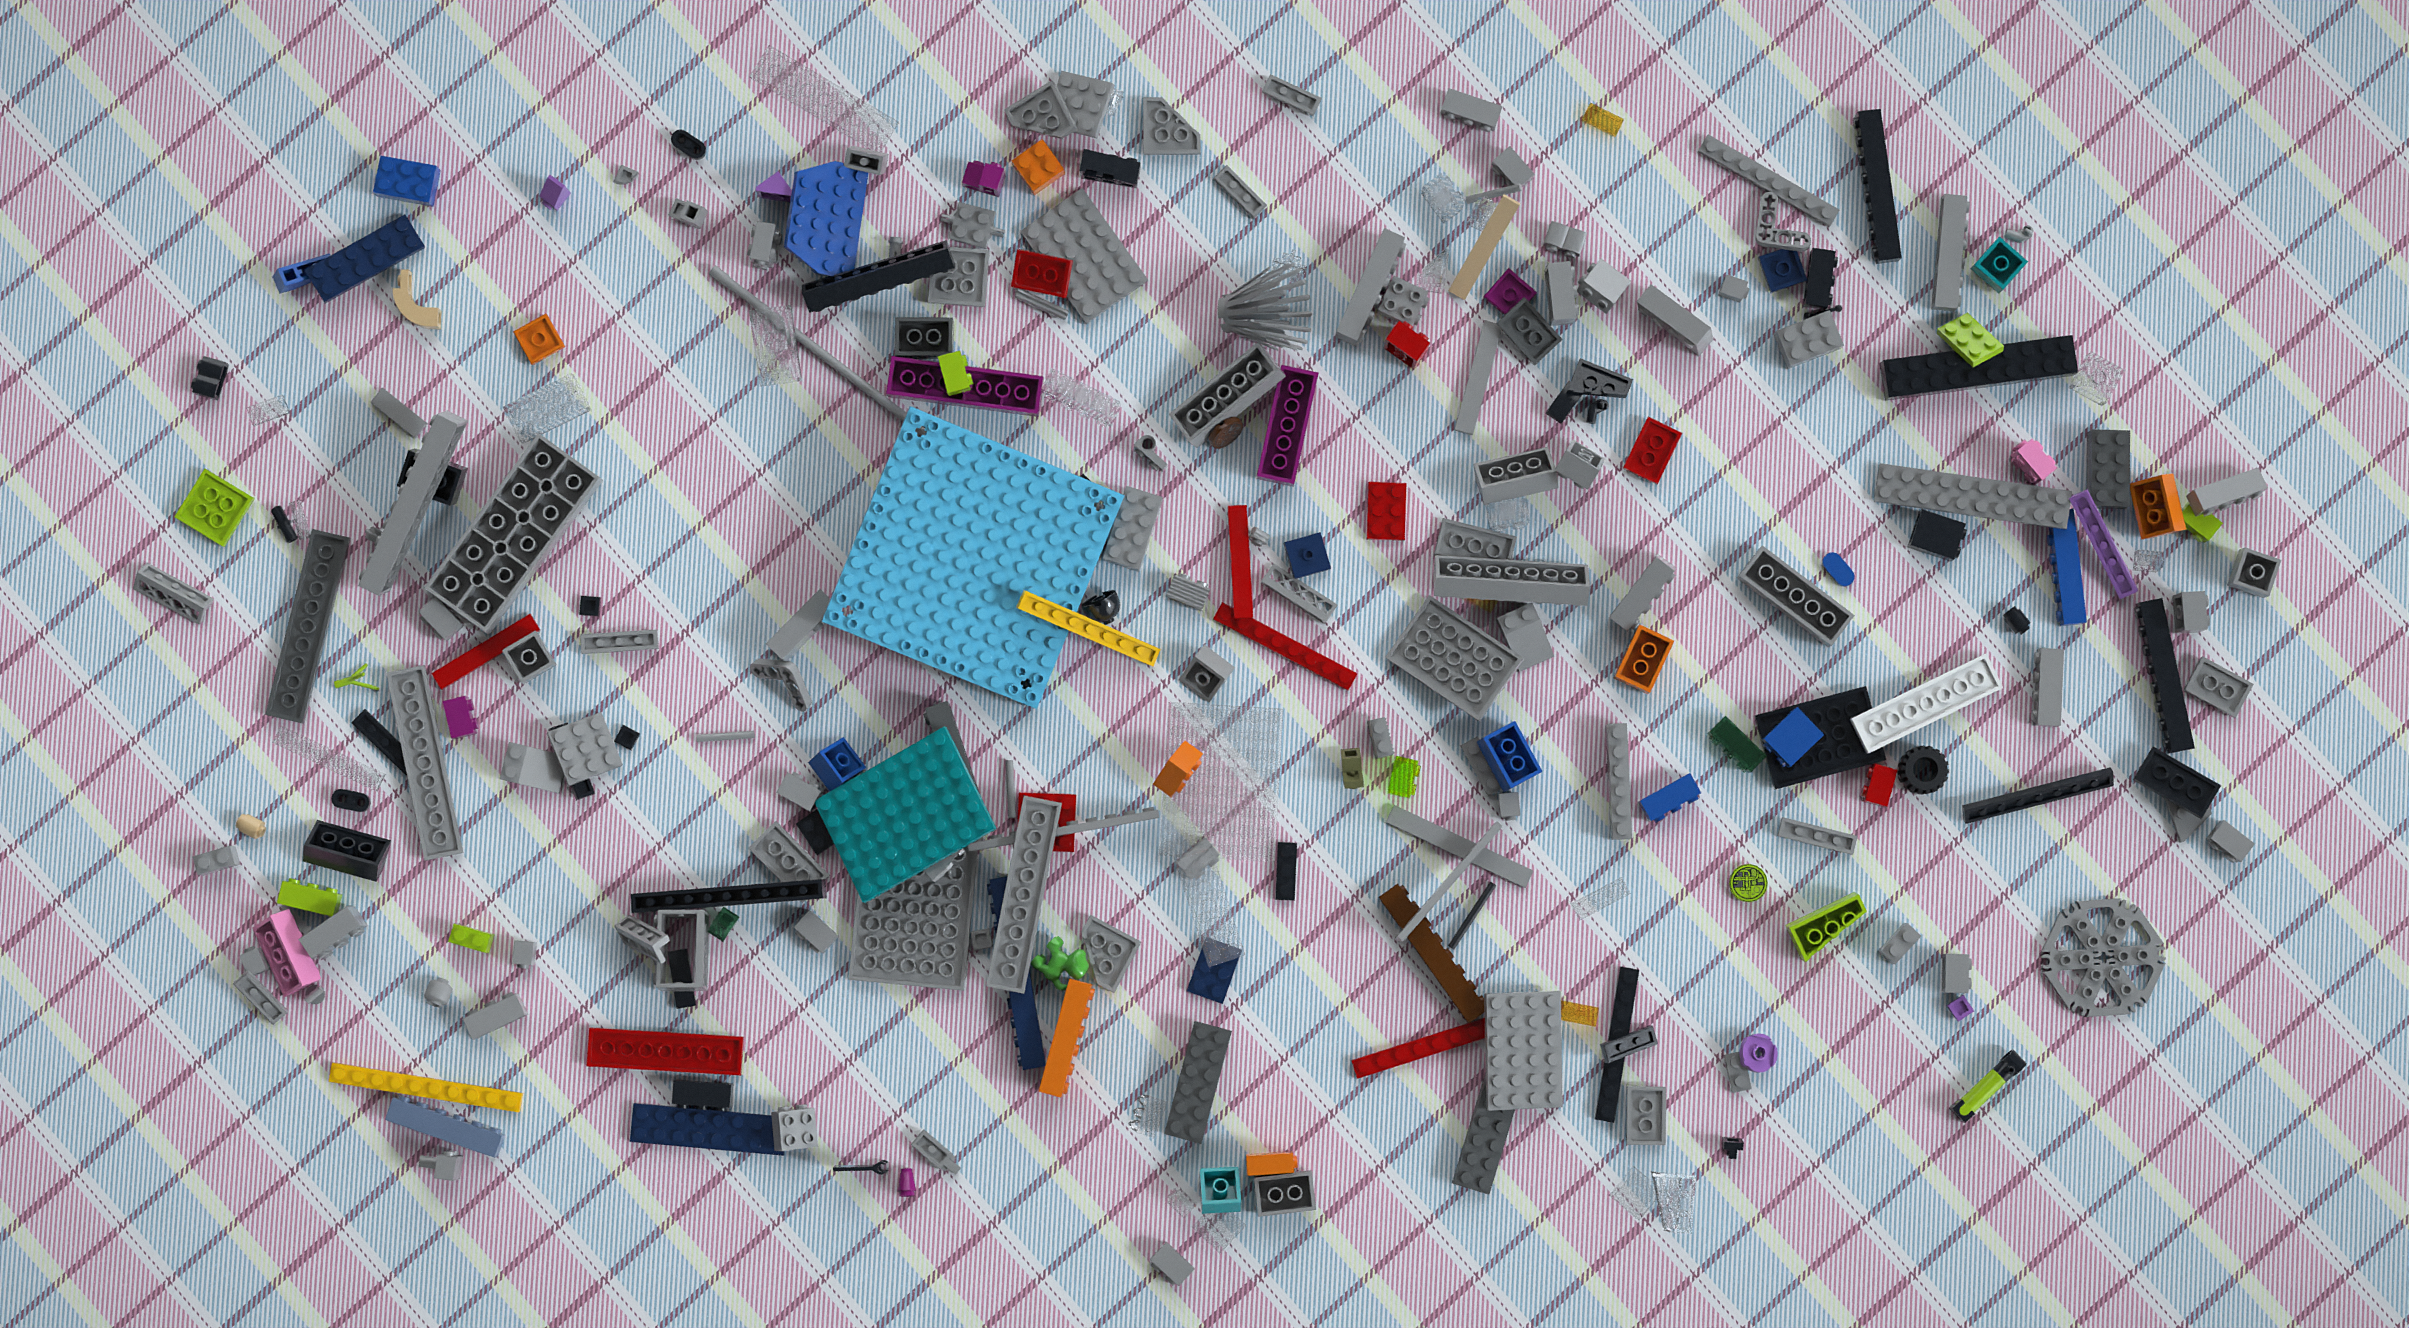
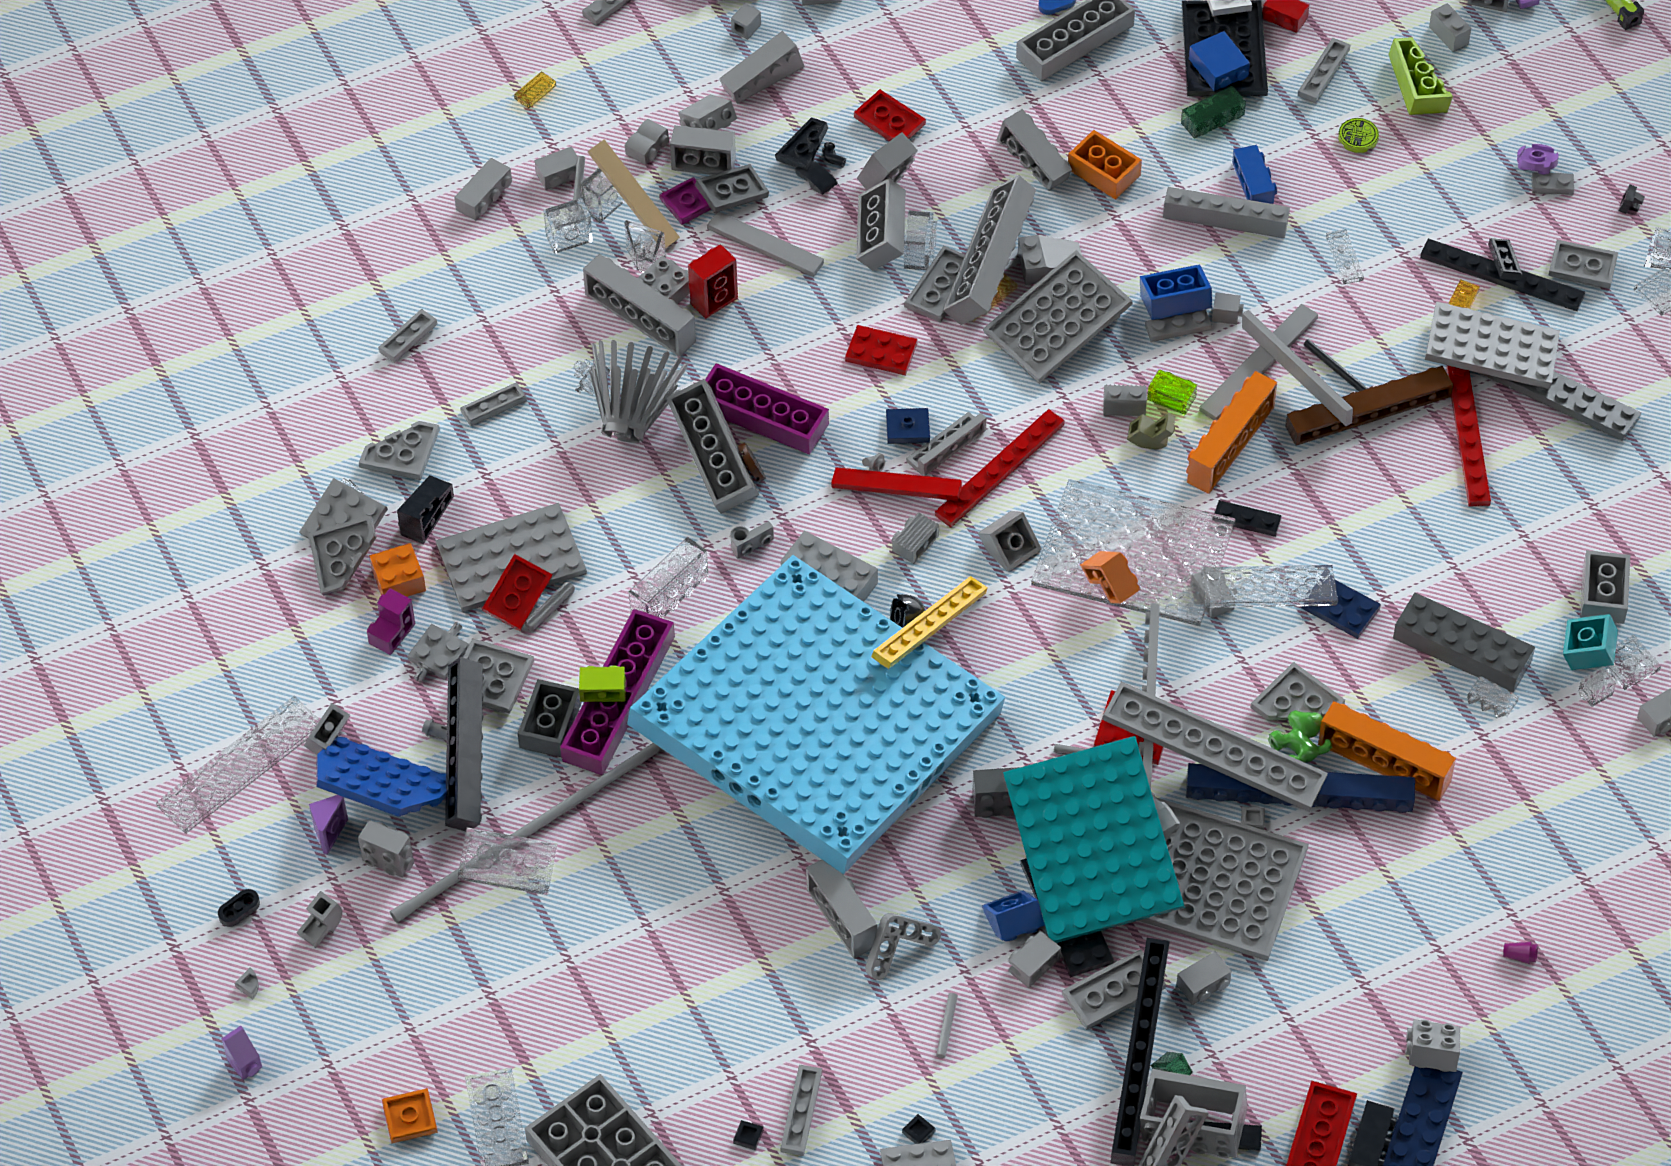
camera: 75 degrees left, 30 degrees down
(876, 1168) = (1495, 979): black flag -> none
(935, 1152) = (1490, 914): light grey hinge -> none
(1271, 1163) = (1569, 589): orange brick -> none
(1365, 839) = (1231, 432): none -> orange brick

